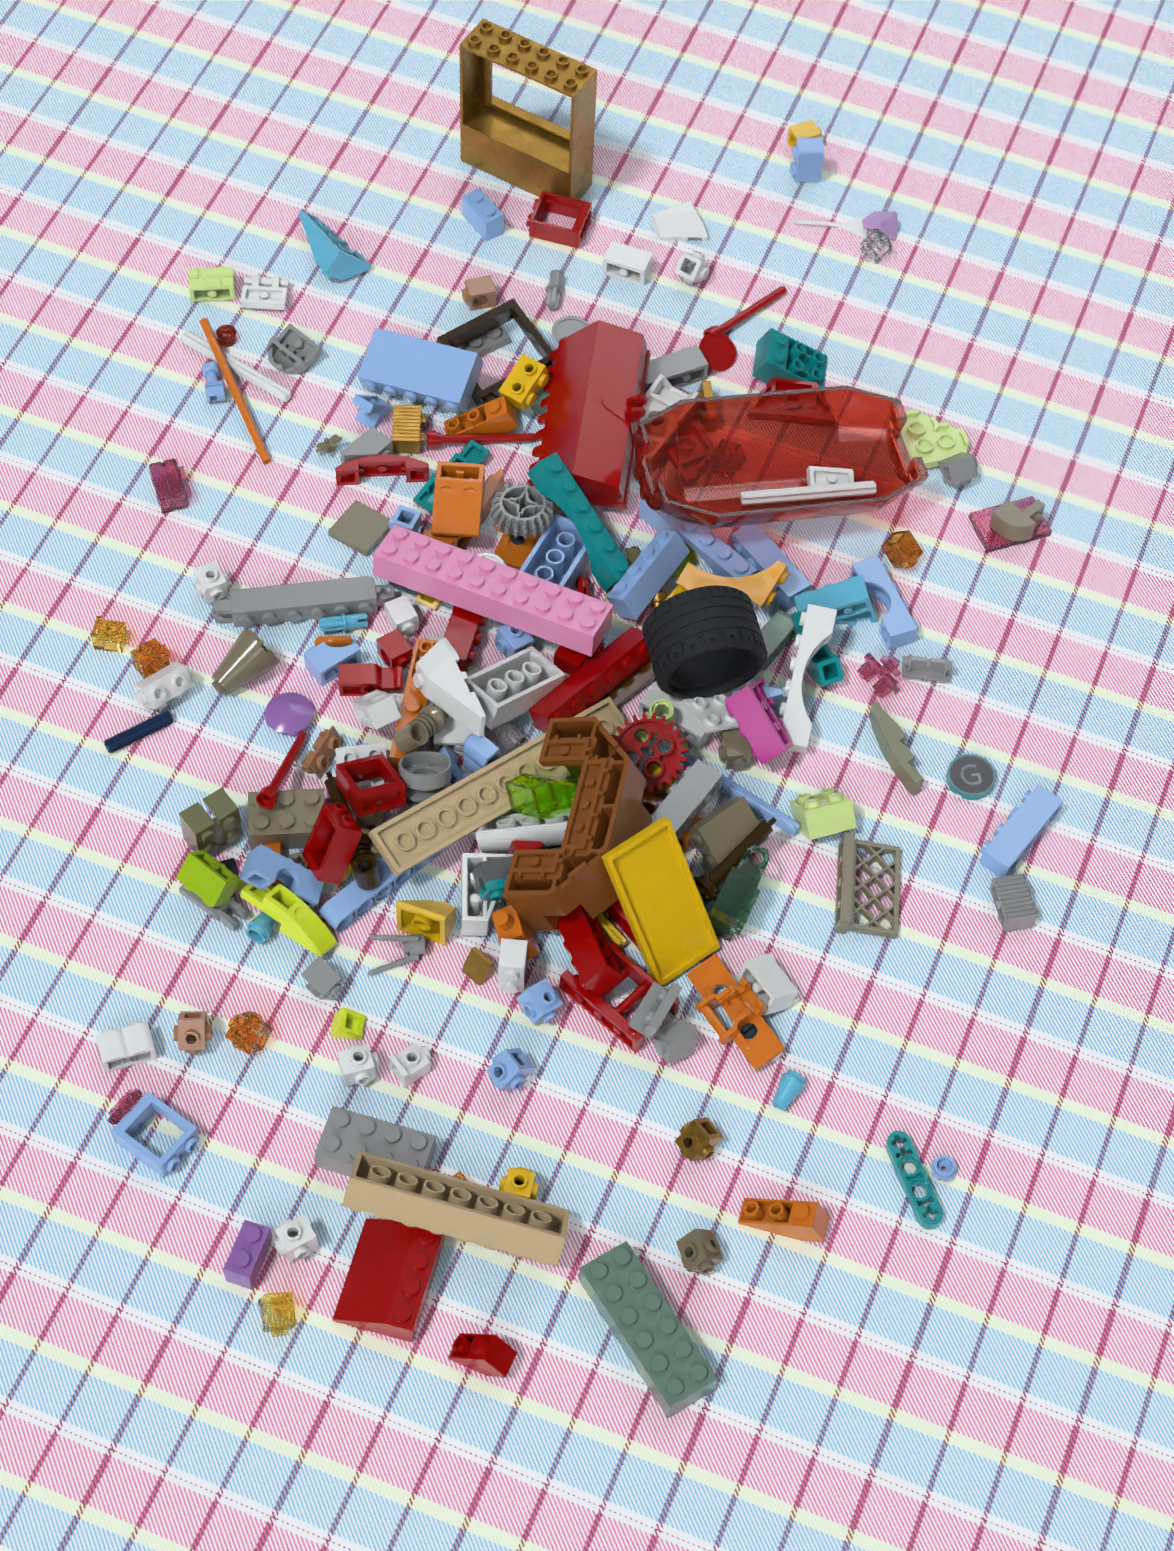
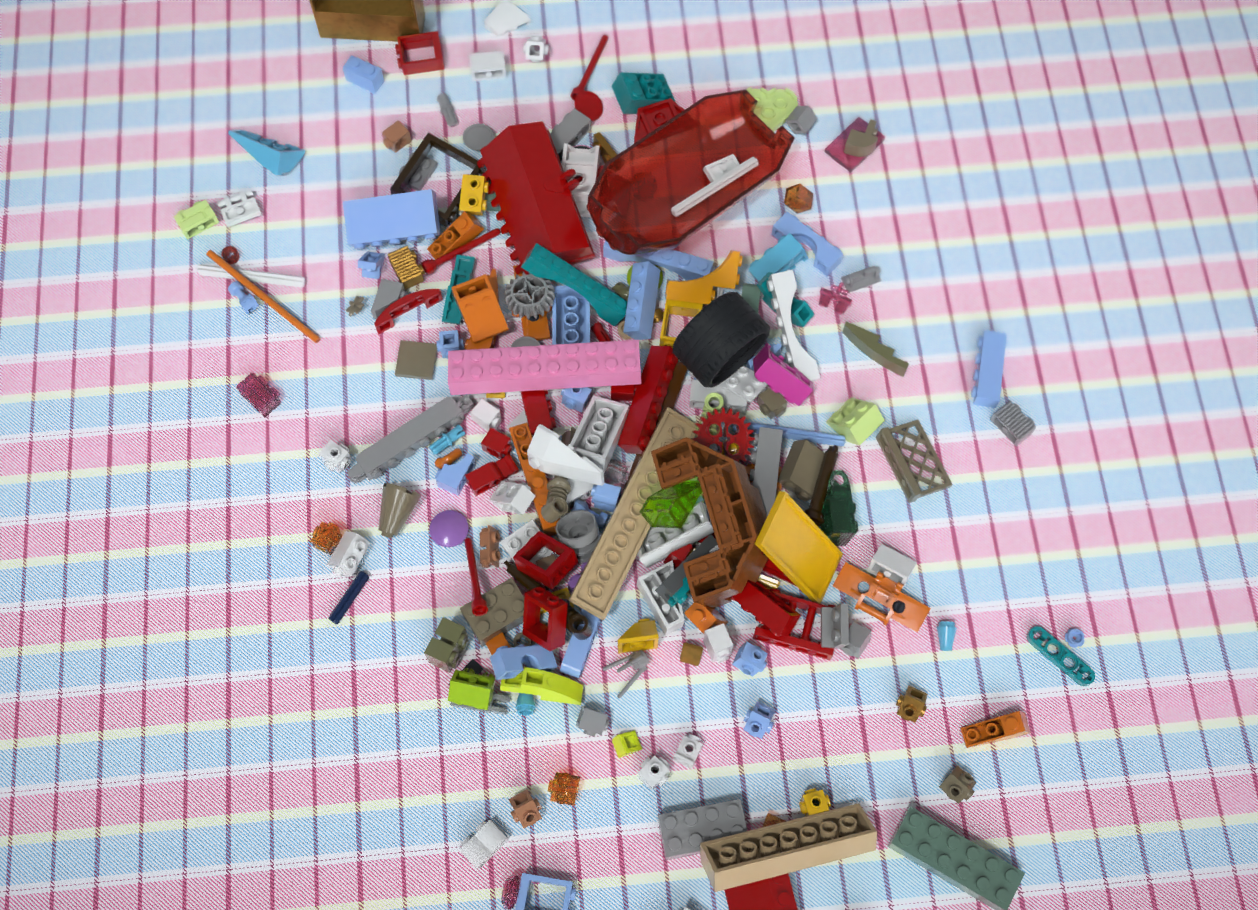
camera: 25 degrees left, 10 degrees up
(110, 635) = (283, 539): clear yellow brick -> none
(292, 351) = (287, 245): light grey slope -> none
(762, 553) = (715, 249): light blue brick -> none
(970, 776) = (933, 344): tile -> none

